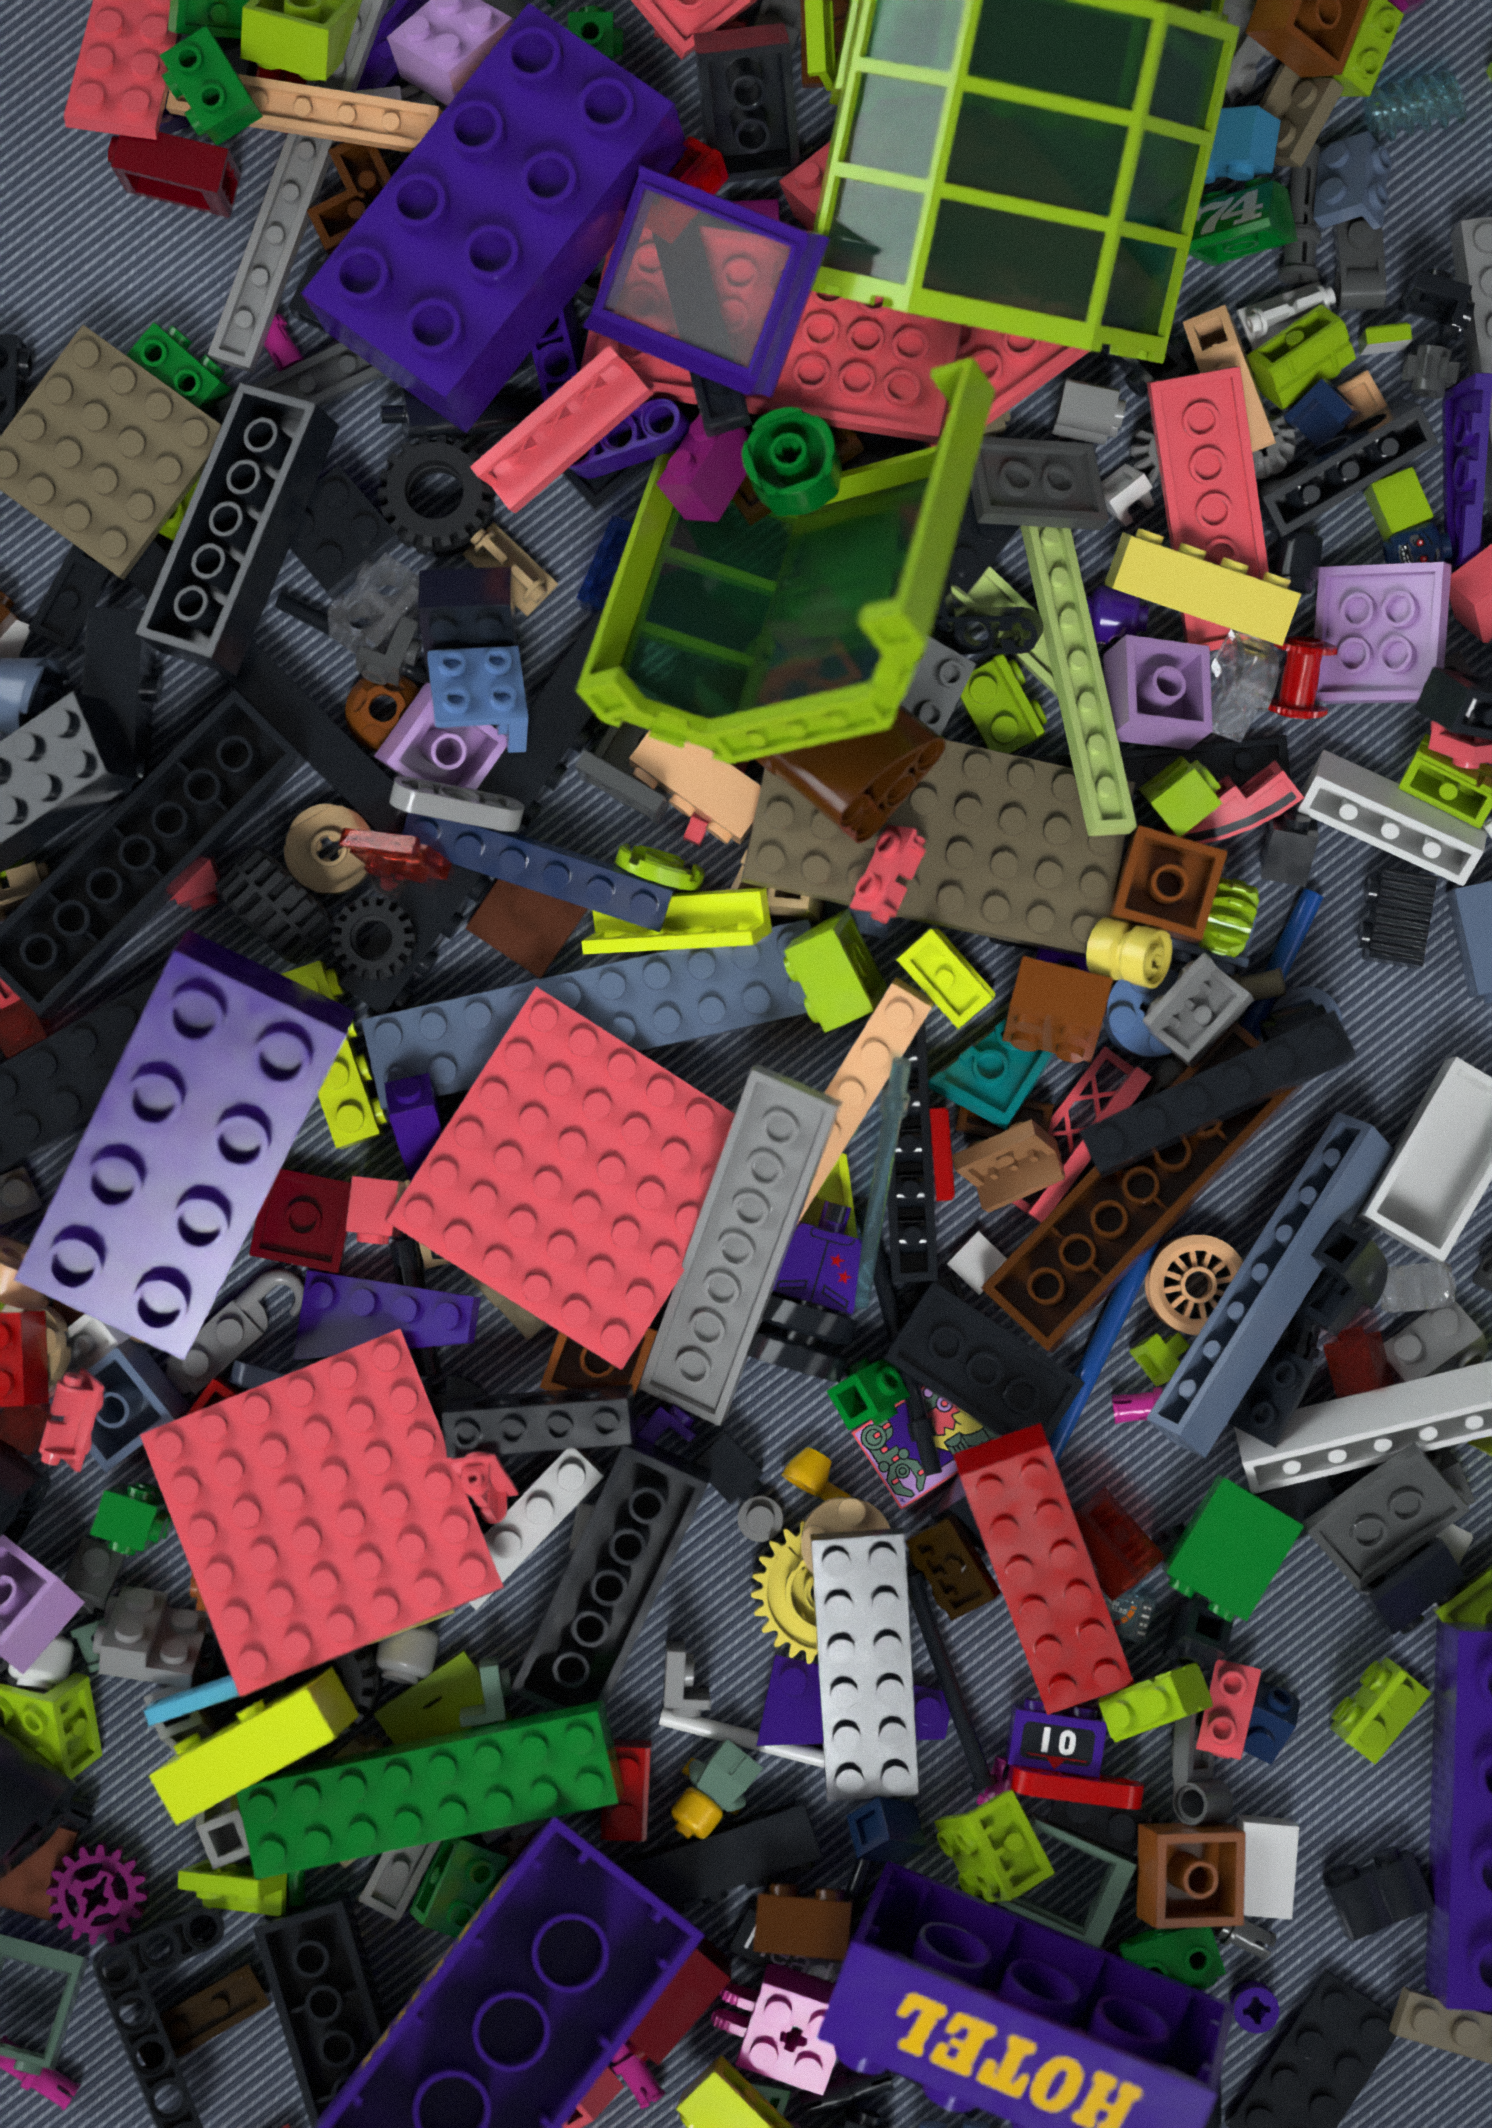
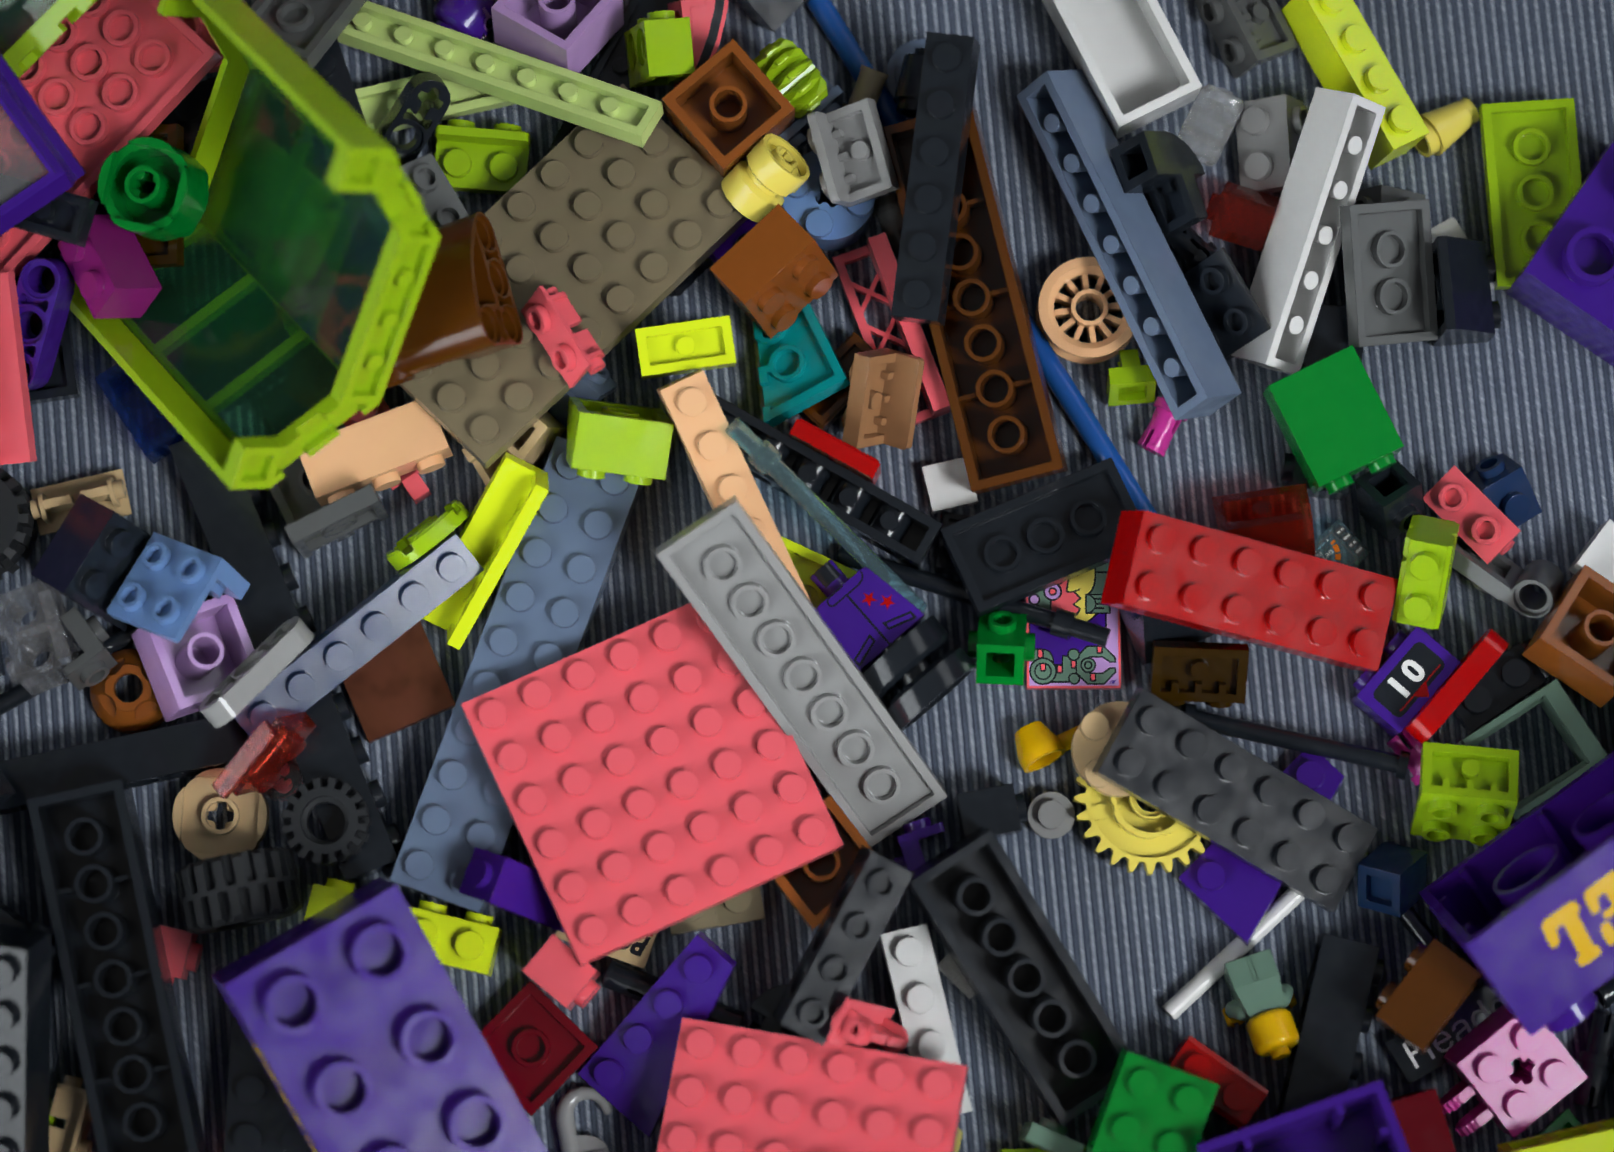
camera: 60 degrees left, 5 degrees down
(678, 1683) = (1139, 970): light grey bracket -> none
(1378, 1709) = (1551, 389): lime bracket -> none

